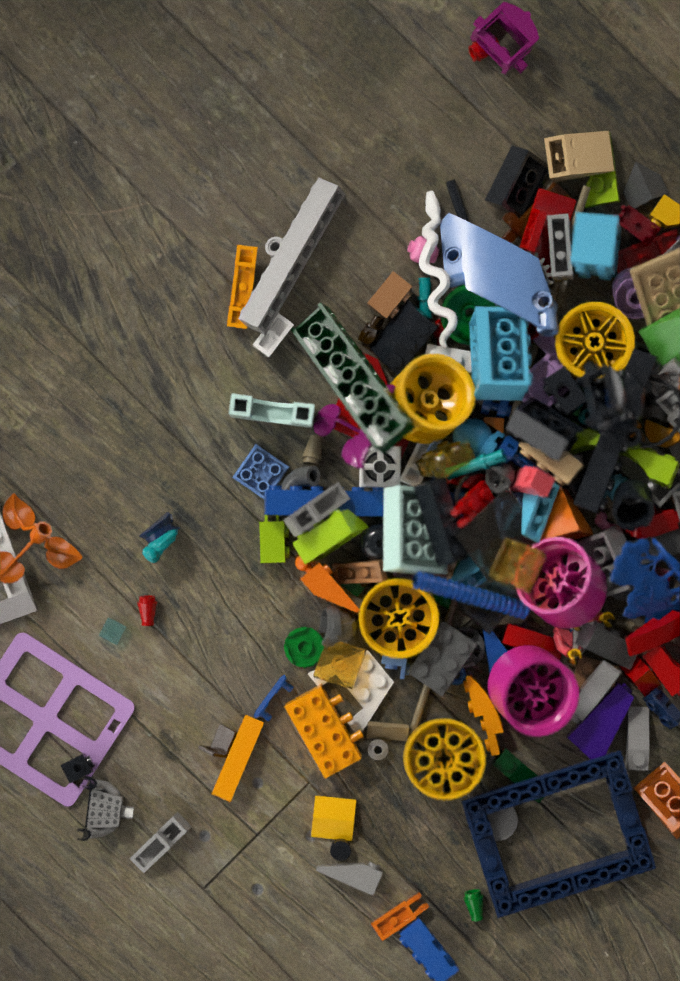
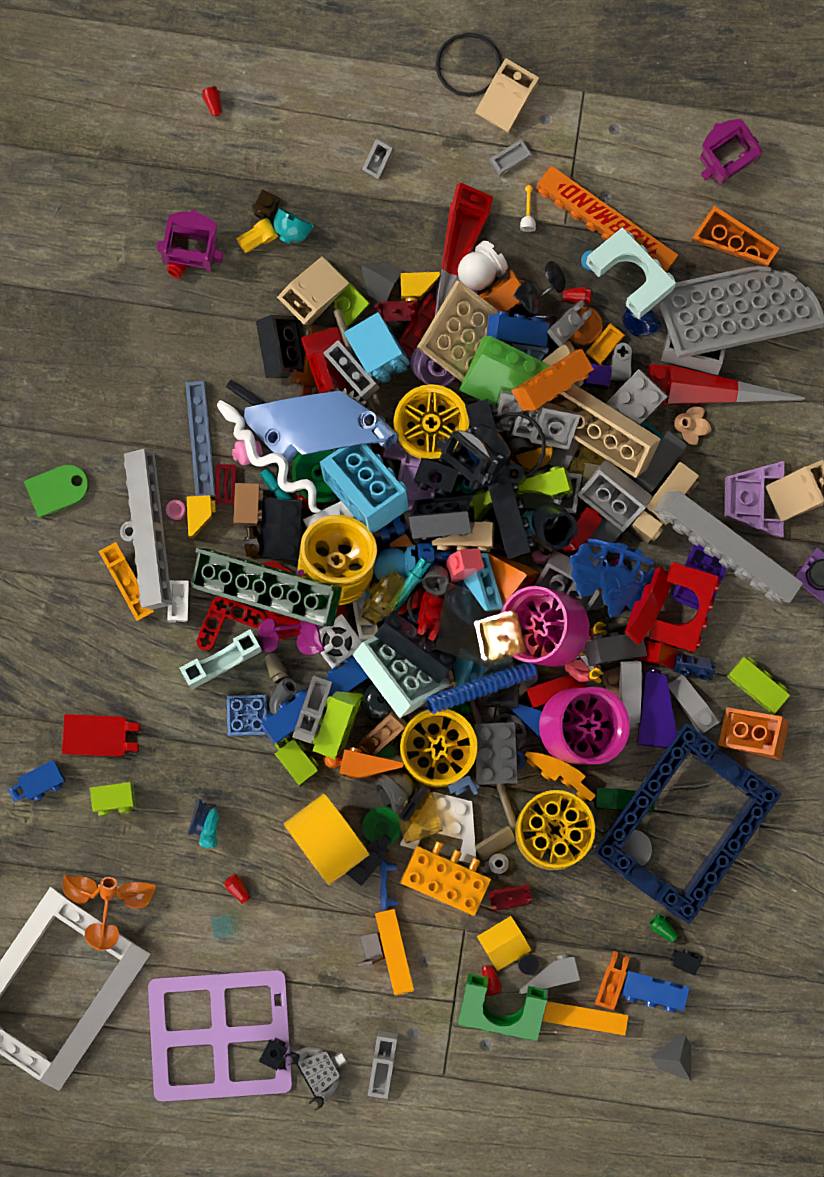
camera: 45 degrees left, 5 degrees down
(48, 401) = (38, 782): none -> blue brick
(100, 460) = (113, 797): none -> lime slope
(125, 397) = (97, 735): none -> red tile
(239, 165) = (55, 489): none -> bright green tile
(248, 625) = (326, 839): none -> yellow wheel
(273, 667) = (377, 852): none -> black hinge
(298, 843) = (494, 985): none -> red cone
(300, 373) = (221, 615): none -> red beam
(300, 896) = (522, 1024): none -> arch
(327, 256) = (175, 509): none -> bright pink tile
(344, 273) = (199, 513): none -> yellow slope
(344, 648) = (414, 802): none -> black axle
(354, 929) = (585, 1018): none -> light orange slope
(366, 784) = (510, 897): none -> dark red hinge
(379, 259) = (225, 466): none -> dark red tile
(392, 211) = (200, 438): none -> sand blue tile
(472, 945) = (685, 961): none -> black brick
(572, 73) = (262, 233): none -> yellow piece
(593, 51) = (265, 205): none -> dark brown bracket
(601, 86) = (291, 227): none -> teal cylinder

